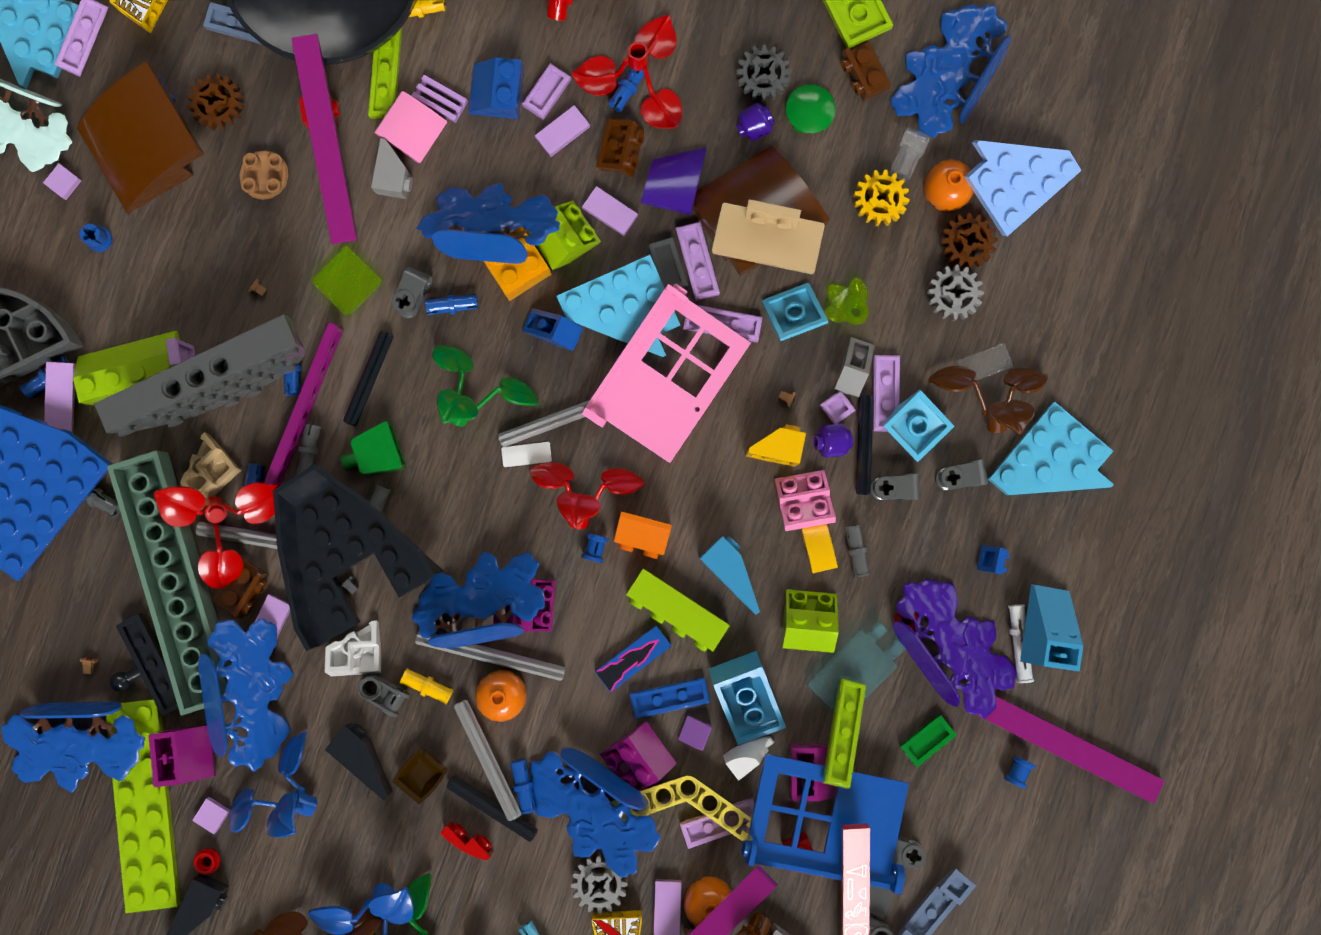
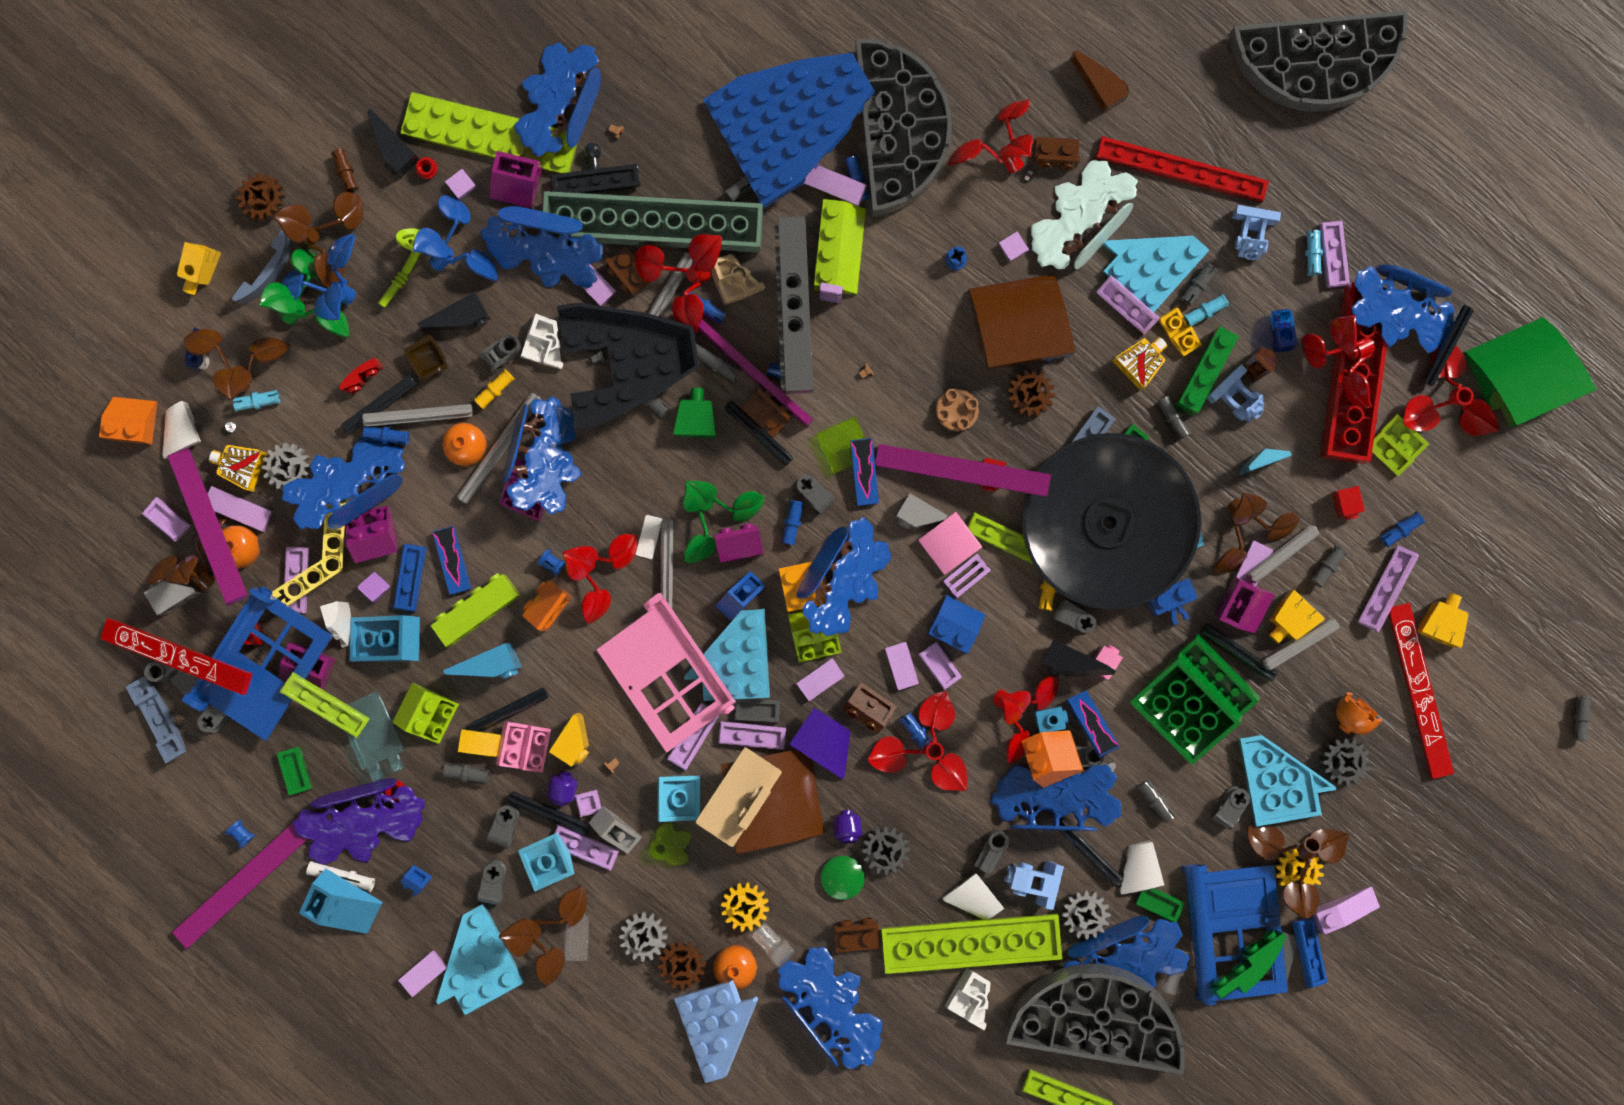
camera: 110 degrees right, 0 degrees up
(296, 842) = (403, 275): none -> lime dish
(340, 377) = (766, 412): none -> reddish brown bracket
(367, 247) = (864, 471): none -> tile
(496, 349) = (739, 543): none -> magenta slope
(772, 532) = (508, 710): none -> black axle
(1087, 513) = (422, 973): none -> lavender tile

